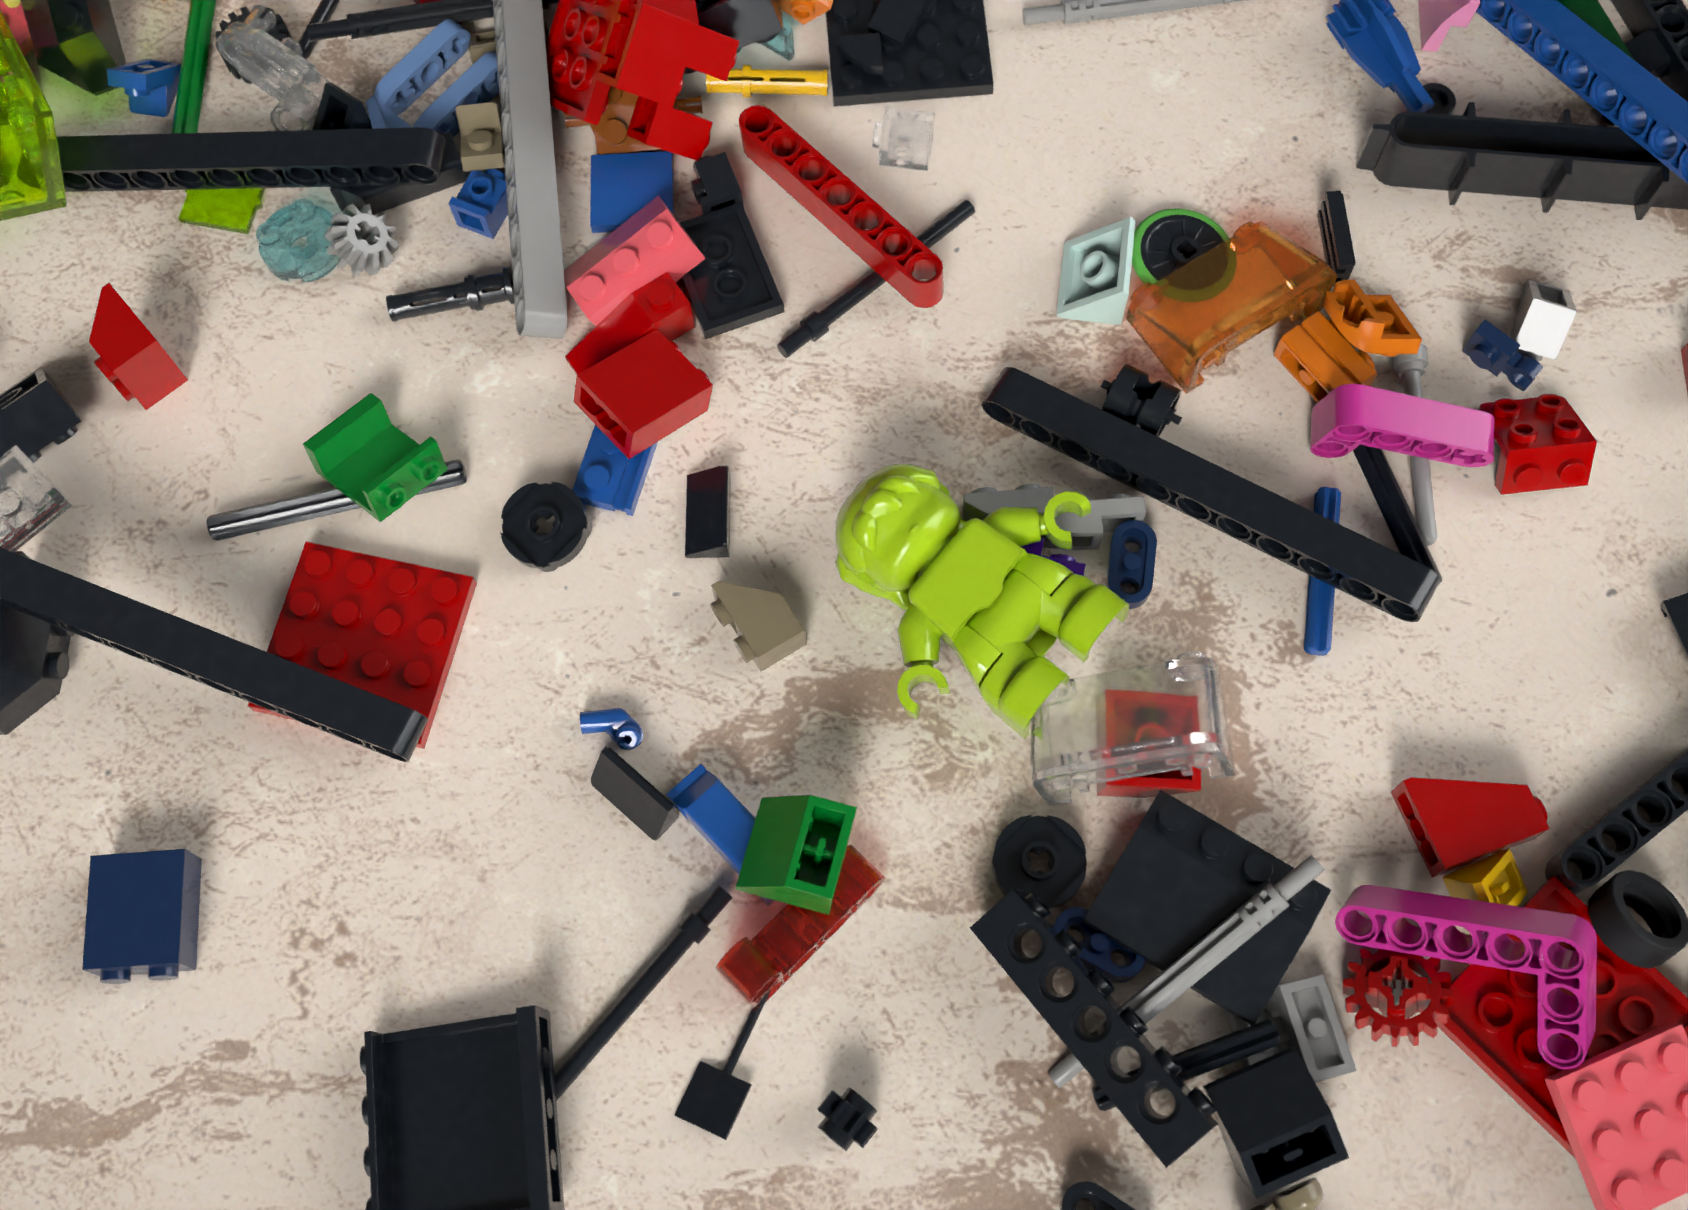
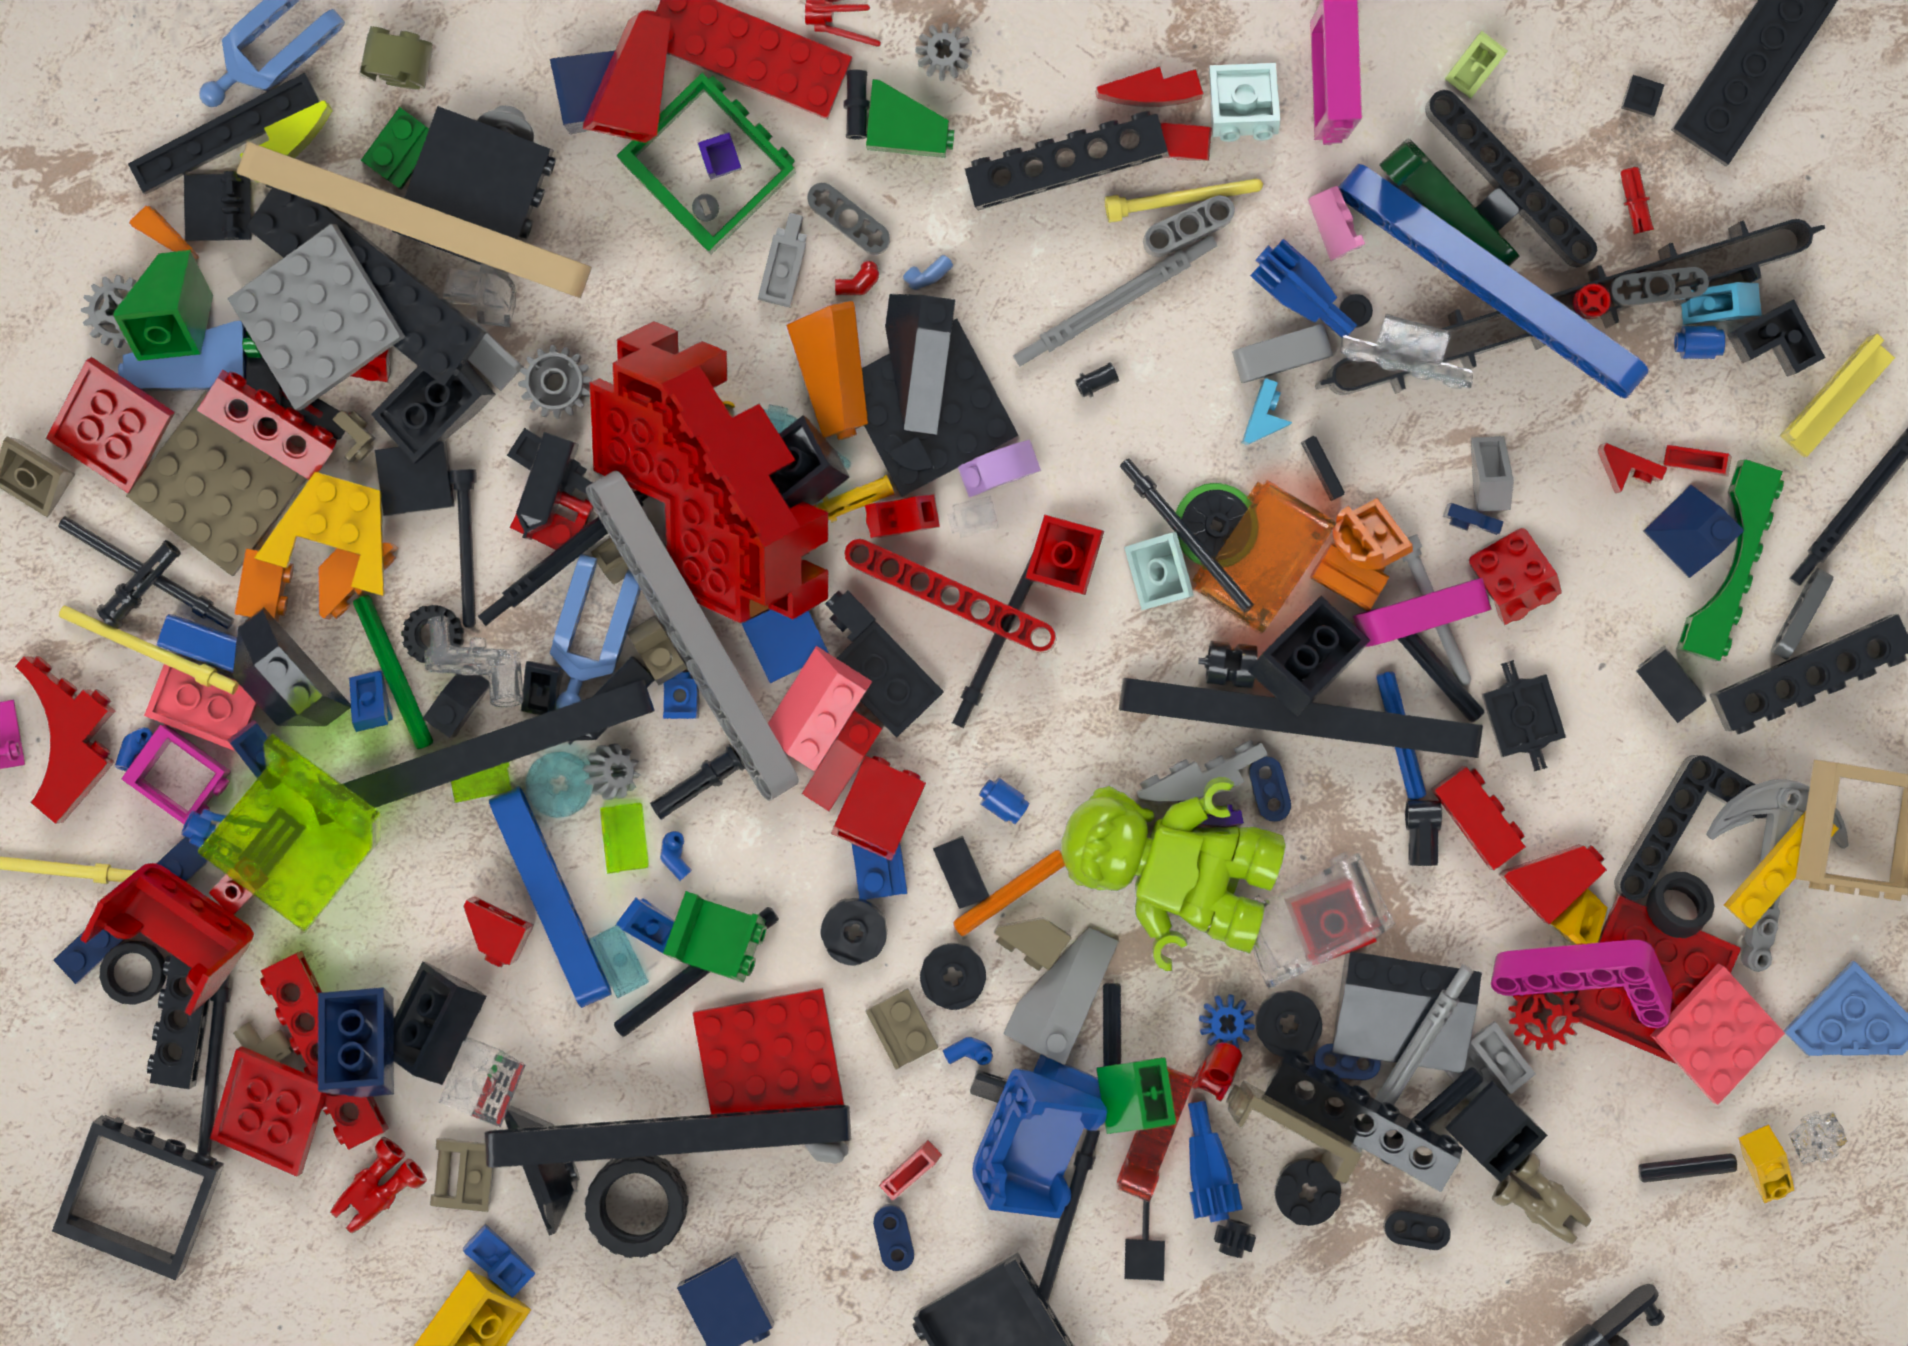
camera: 25 degrees left, 20 degrees up
(66, 700) = (618, 1240): none -> black tyre
(218, 353) = (550, 897): none -> blue beam
(234, 109) = (456, 703): none -> black slope
(254, 451) = (618, 961): none -> clear light blue slope
(302, 407) = (646, 923): none -> blue slope
(336, 321) = (624, 837): none -> clear neon green panel
(373, 774) = (827, 1152): none -> light grey arm
(383, 360) = (671, 854): none -> blue arm
(404, 922) = (893, 1238): none -> dark blue plate
(467, 844) = (910, 1170): none -> red piece
(545, 667) = (901, 1028): none -> dark tan plate
(623, 607) = (942, 991): none -> black plate
(637, 867) = (1032, 1143): none -> blue windscreen
(752, 560) = (1009, 893): none -> orange axle
(756, 715) = (1057, 1005): none -> light grey wedge
(796, 450) = (1003, 800): none -> blue brick
(814, 756) = (1111, 1024): none -> black axle
(822, 114) = (902, 516): none -> red brick
(847, 1038) = (1210, 1171): none -> blue piece
(921, 877) = (1218, 1070): none -> red piece
(961, 96) = (999, 468): none -> lavender brick
(976, 829) = (1238, 1021): none -> blue gear
(990, 212) = (1064, 554): none -> red slope
(995, 1081) = (1299, 1209): none -> black plate
(999, 971) = (1340, 1154): none -> dark tan panel
(1106, 64) = (1096, 380): none -> black pin
(1118, 187) = (1147, 489): none -> black bar
(1243, 413) = (1309, 656): none -> black brick
(1286, 164) = (1260, 422): none -> medium azure slope
(1314, 682) = (1423, 822): none -> black piece
(1330, 108) = (1282, 353): none -> light grey beam
(1391, 702) = (1479, 817): none -> red brick
(1492, 604) = (1523, 715): none -> black plate
(1500, 114) = (1410, 348): none -> clear bracket

